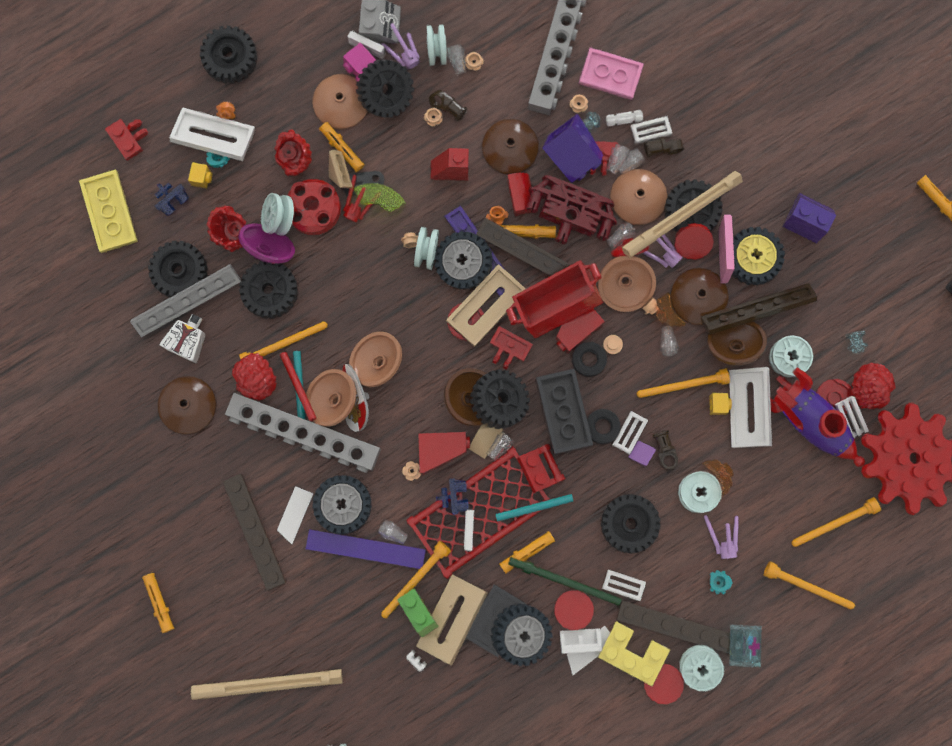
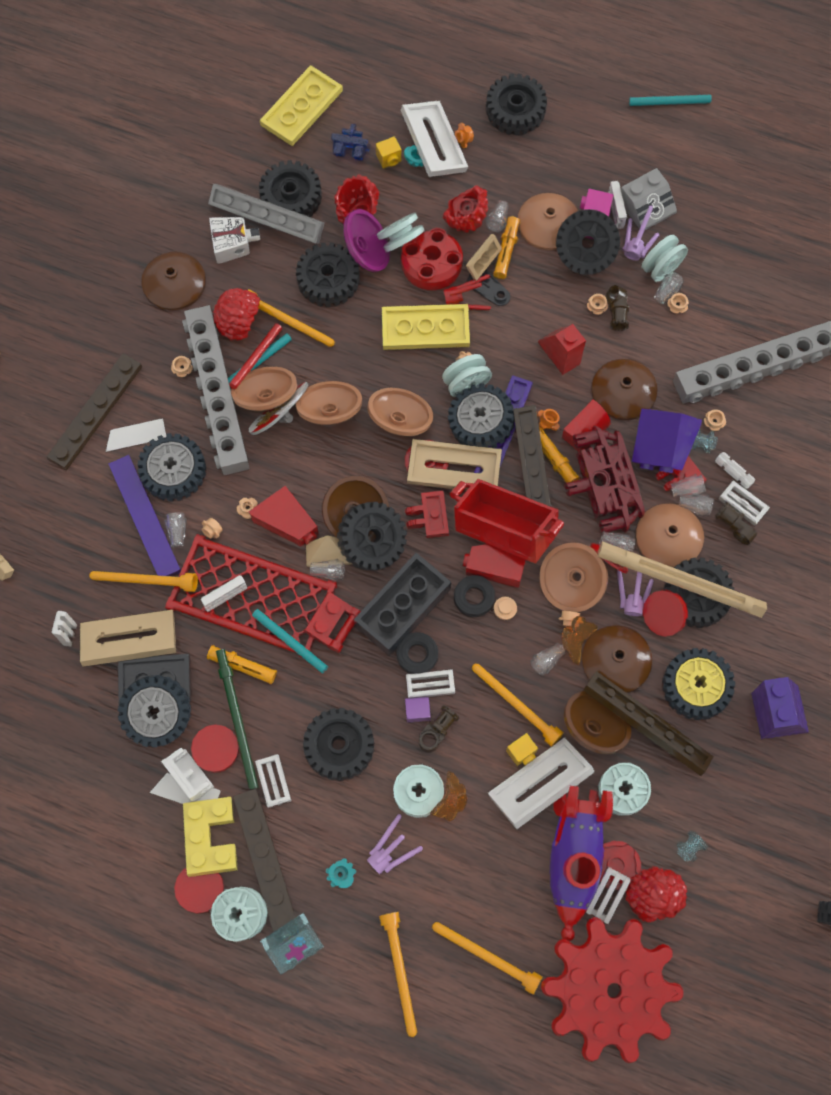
camera: 55 degrees right, 10 degrees down
(124, 139) = (379, 77): red hinge -> none
(265, 440) = (181, 361): none -> light nougat plate
(312, 135) = (498, 217): none -> clear cone
(362, 249) = (425, 326): none -> light yellow plate
(380, 195) = (487, 308): clear neon green tile -> none
(410, 507) = (211, 528): none -> light nougat plate
(418, 613) = (112, 600): bright green brick -> none
(419, 314) = (400, 411): none -> nougat dish
(457, 505) = (245, 555): clear blue hips -> none
(611, 73) = (768, 430): bright pink tile -> none
(726, 250) = (684, 643): bright pink tile -> none

